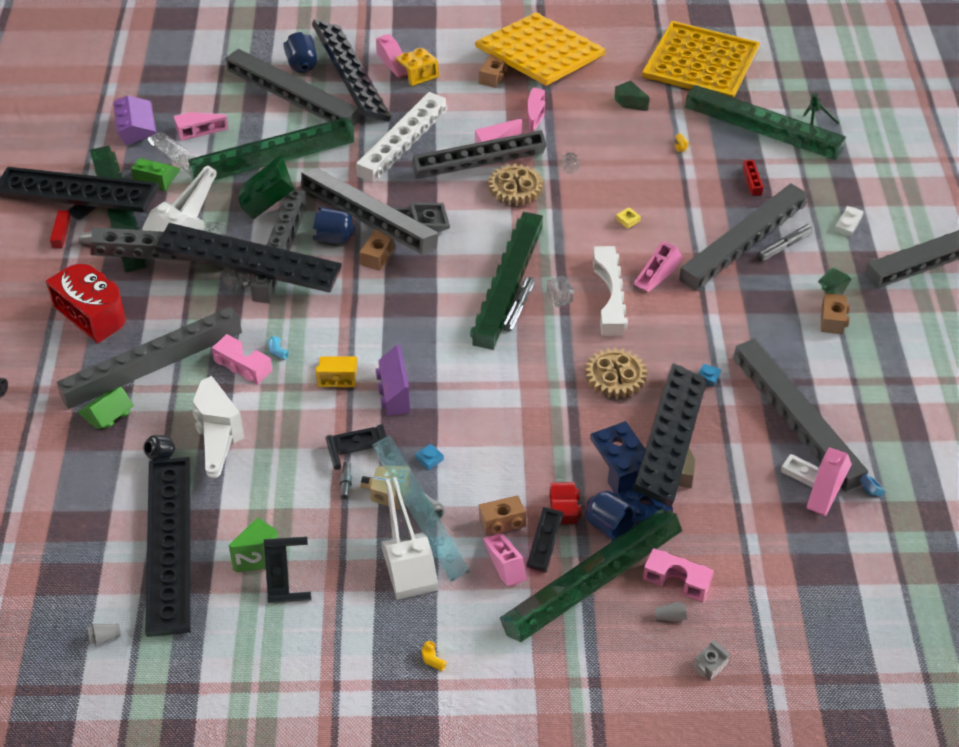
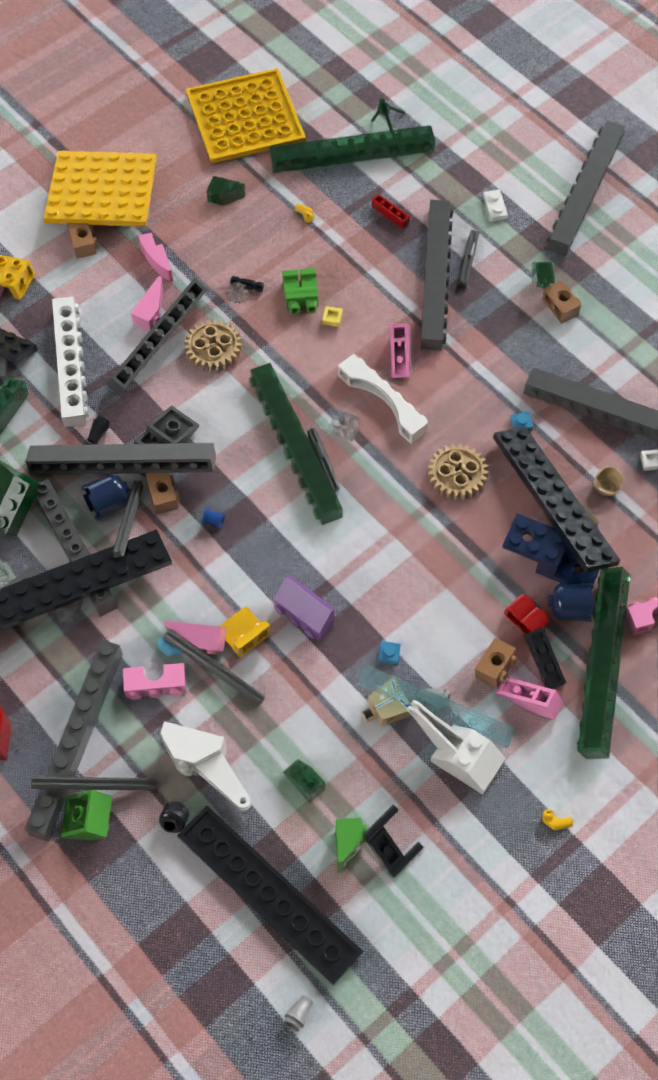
camera: 40 degrees left, 15 degrees up
(129, 387) = (93, 783): none -> dark grey axle
(272, 492) = (305, 780): none -> clear green slope
(291, 378) = (214, 667): none -> dark grey axle
(303, 352) = (202, 636): none -> bright pink slope
(330, 245) = (128, 519): none -> dark grey axle
(345, 480) = (348, 725): flat silver bar -> none
(353, 442) = (323, 684): black plate -> none
(377, 187) = (98, 429): none -> black cone
(396, 290) = (213, 518): none -> blue bush
(586, 163) = (250, 284): none -> black axle
(621, 187) = (303, 296): none -> bright green hips
(736, 456) = (608, 481): none -> tan hair

